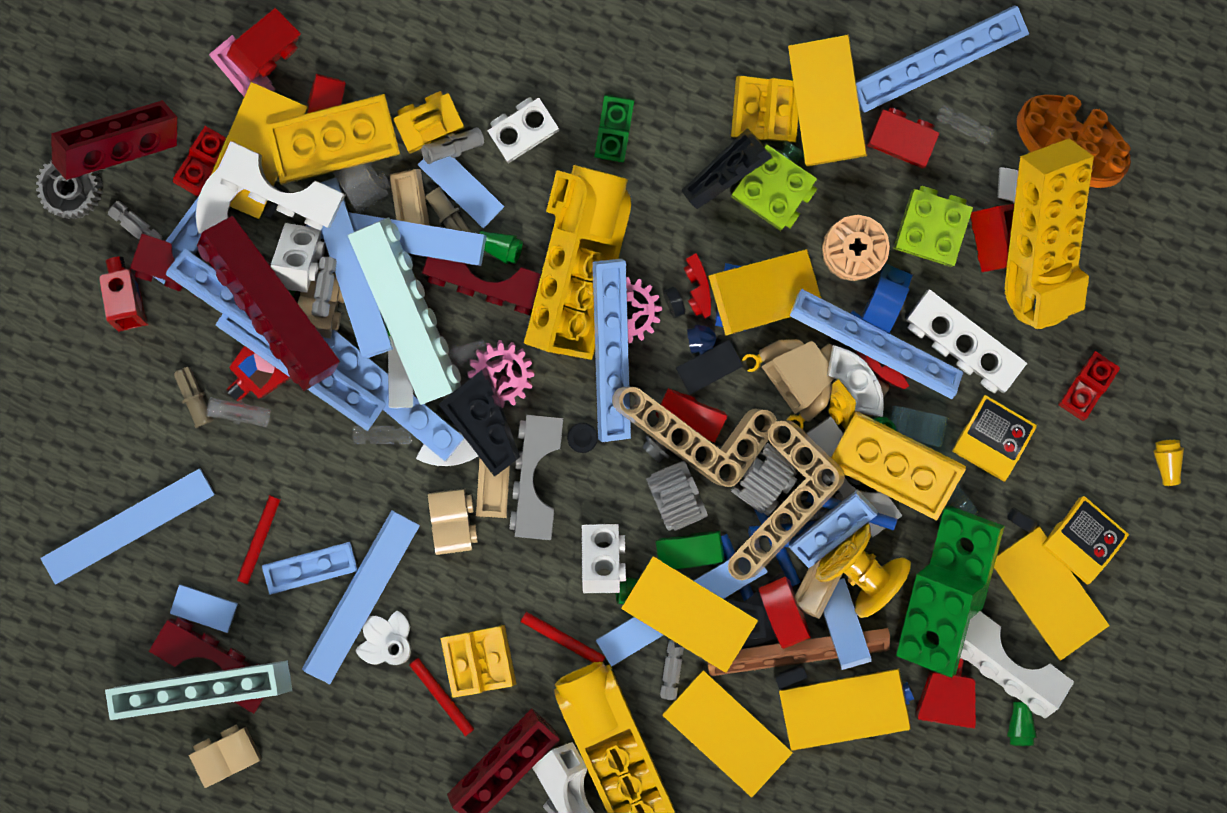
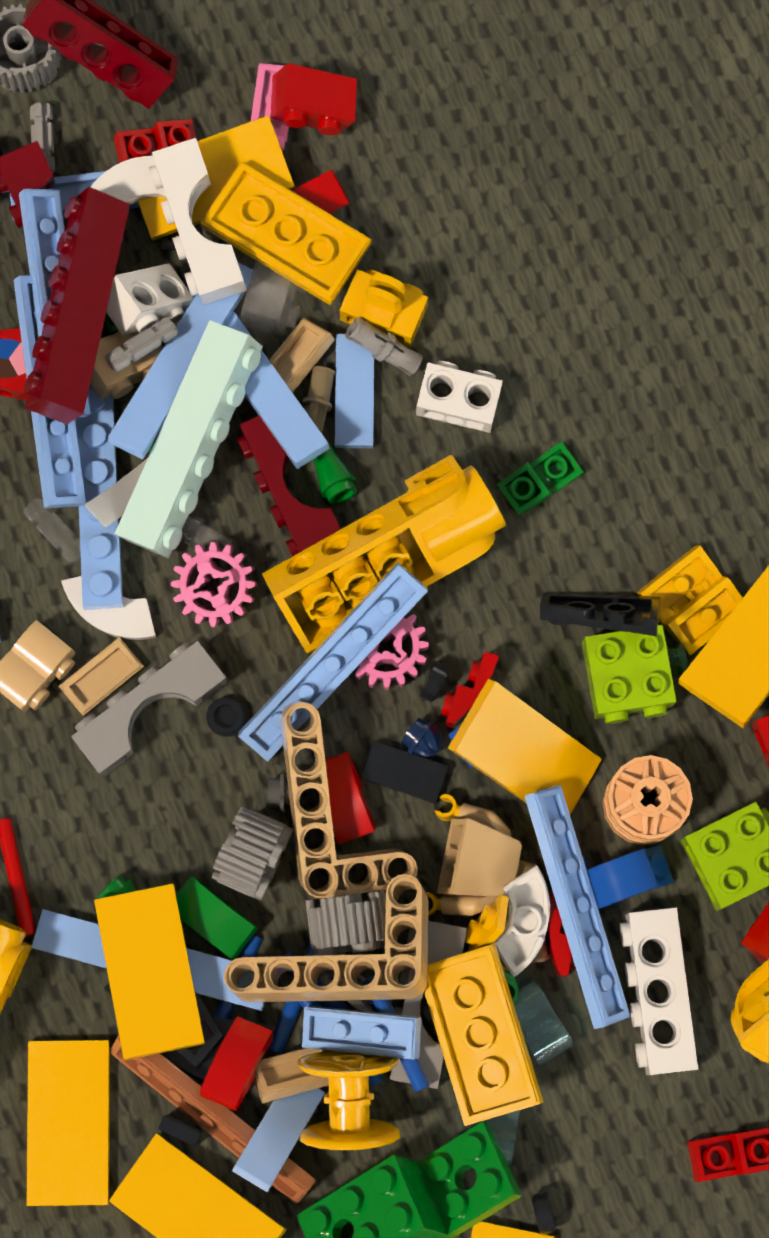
camera: 45 degrees right, 10 degrees down
(482, 422) = (151, 606): black wing -> none
(598, 558) = (121, 834): white brick -> none
(671, 671) = (78, 1011): light grey axle -> none
(994, 438) = (596, 1109): slope -> none

